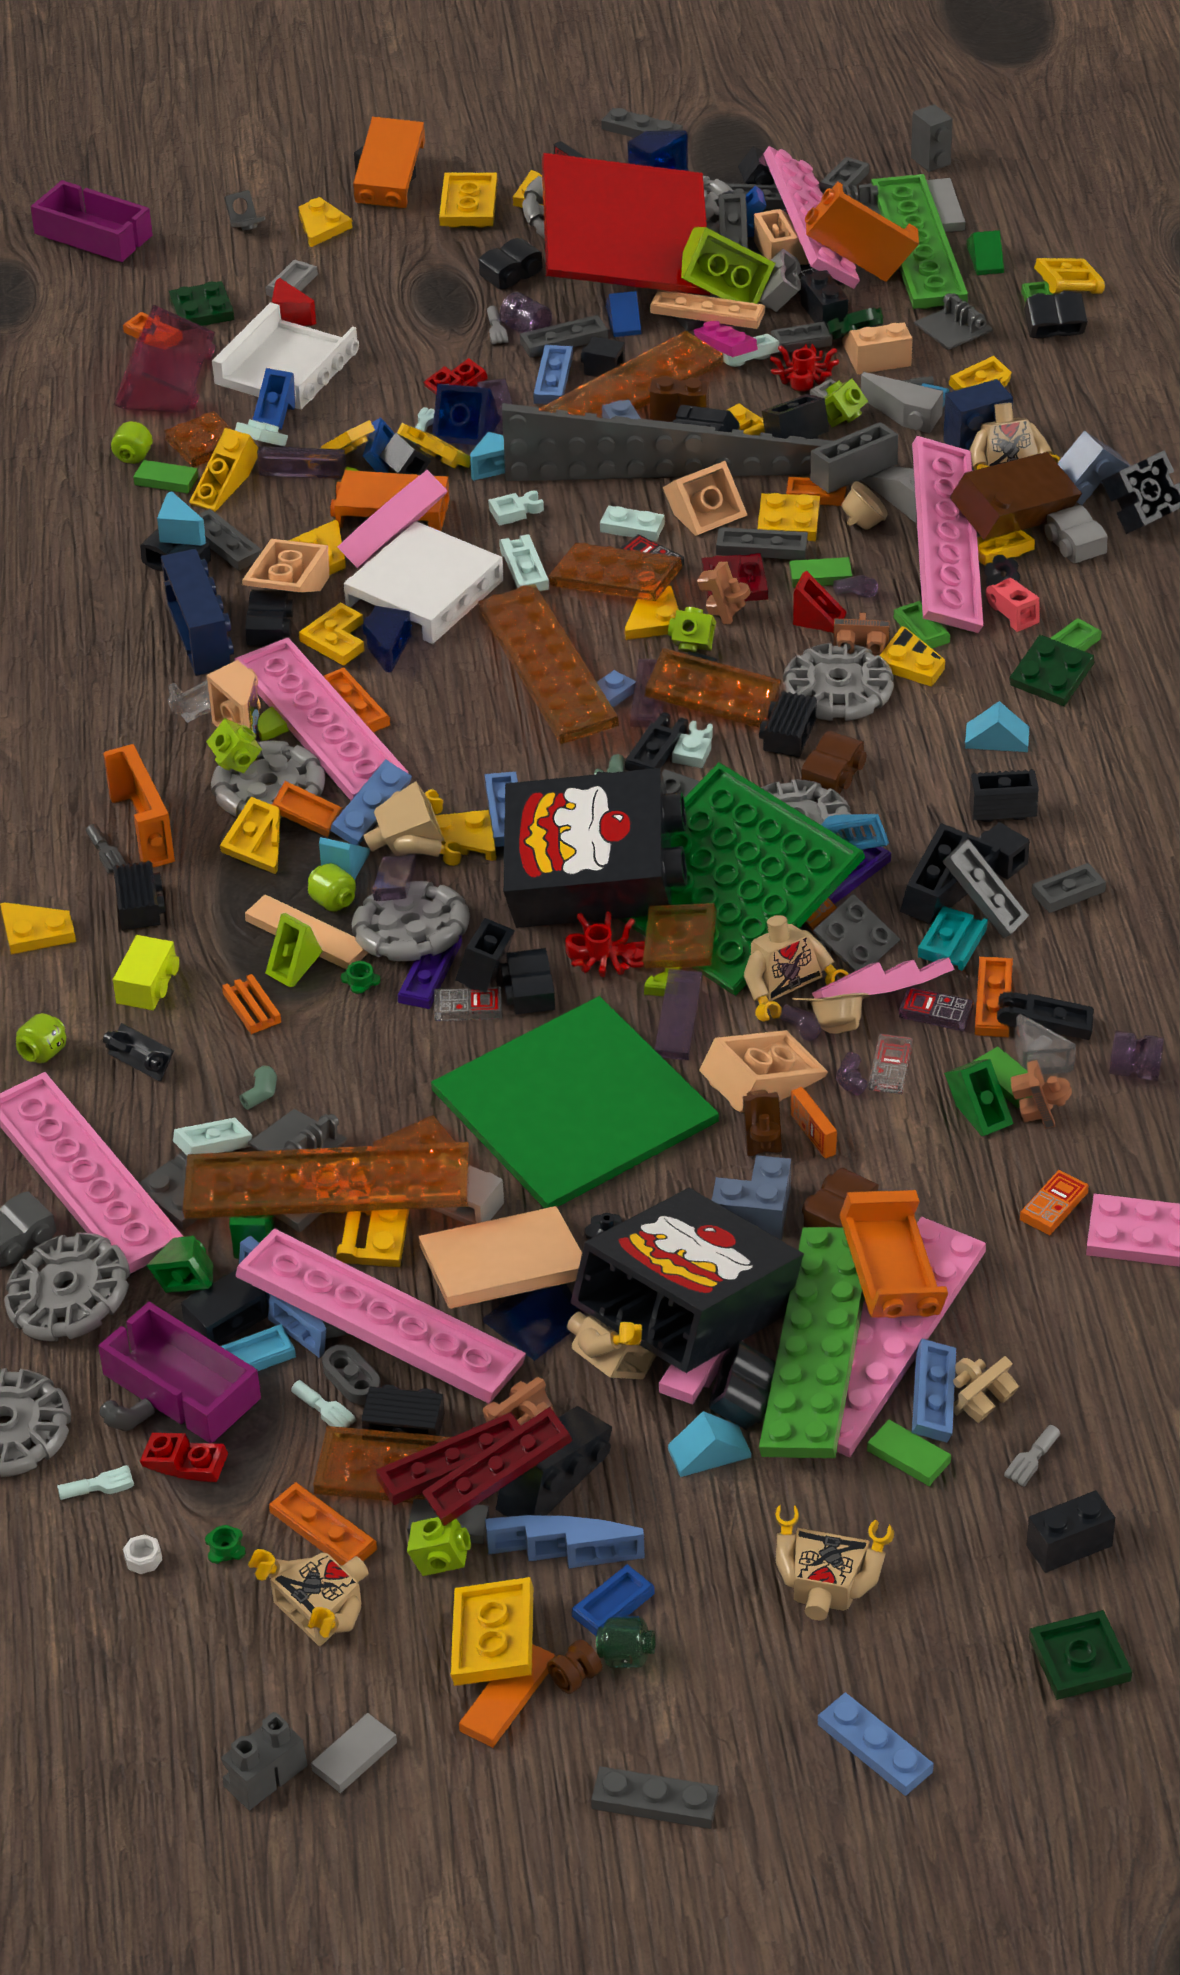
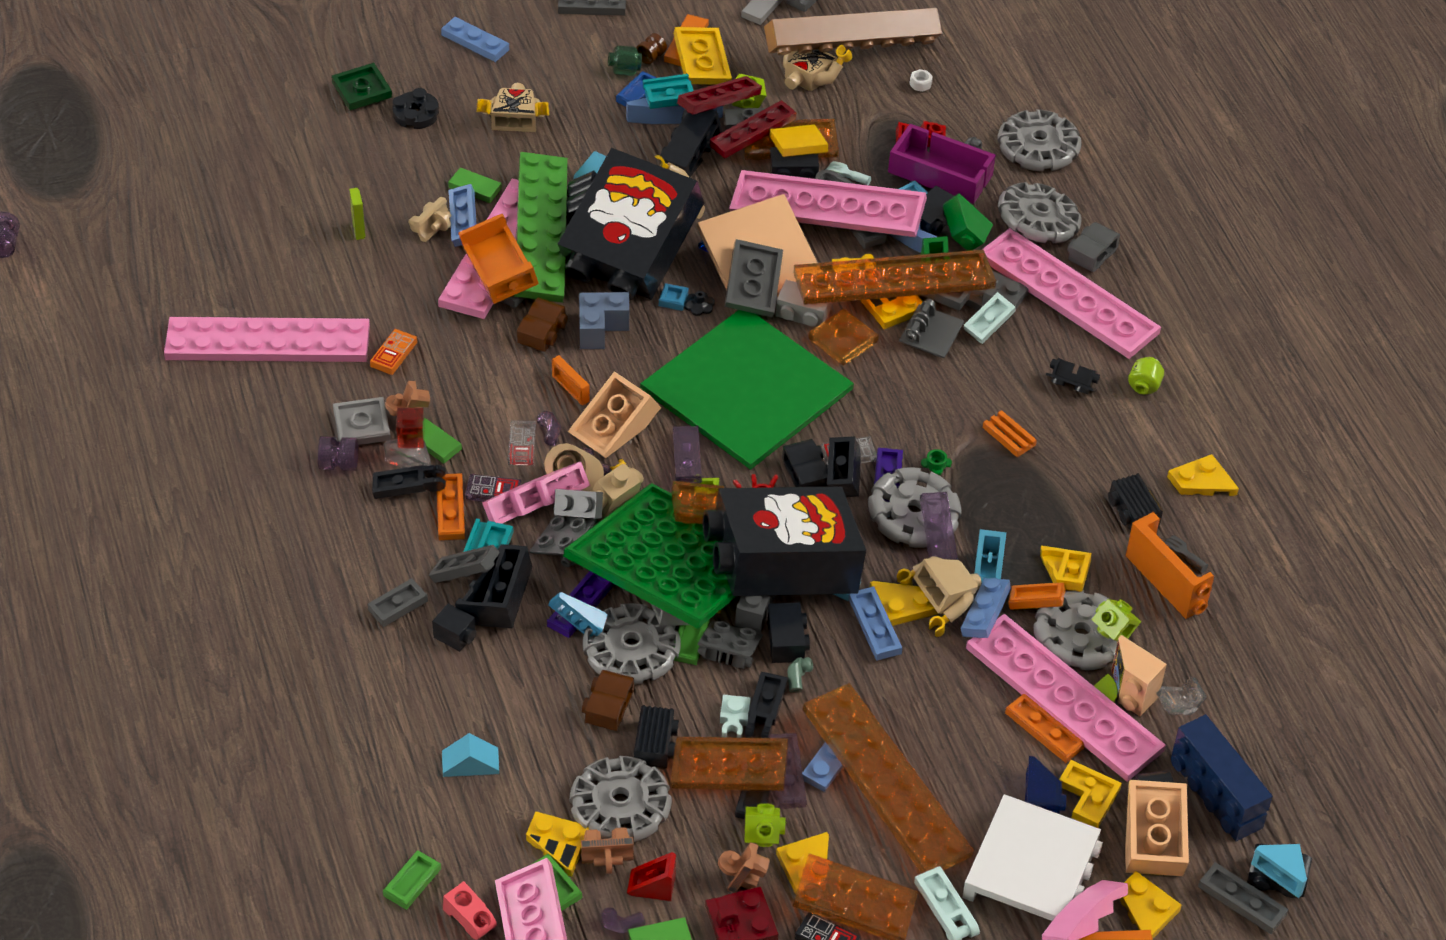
camera: 165 degrees right, 5 degrees up
(107, 1482) = (961, 120): light aqua piece -> none
(145, 972) = (1097, 439): neon yellow brick -> none
(224, 1536) = (875, 91): green plate -> none
(228, 1605) = (852, 30): none -> brick
(263, 1089) = (972, 368): sand green arm -> none
(292, 951) = (991, 463): lime slope -> none
(322, 1525) = (822, 109): orange tile -> none
(330, 886) = (985, 520): lime head -> none
(336, 945) = (996, 498): light nougat tile -> none
(388, 1420) = (799, 140): none -> yellow tile
(524, 1402) = (720, 172): nougat hips -> none
(525, 1209) = (753, 278): none -> dark grey plate
(572, 1523) = (665, 90): none -> teal plate
(762, 1122) = (605, 360): reddish brown hips -> none
(844, 952) = (578, 503): none -> plate
(979, 1096) = (455, 414): green slope -> none
(991, 1587) = (417, 99): none -> black plate
(1003, 795) = (458, 671): black brick -> none
(1026, 1463) = (400, 187): light grey piece -> none
(1040, 1033) = (410, 427): none -> clear red brick
(1052, 670) = (426, 832): dark green plate -> none
(1070, 1531) = (370, 141): black brick -> none
(1098, 1382) = (357, 213): none -> lime tile
(1104, 1105) = (362, 419): none -> light grey plate

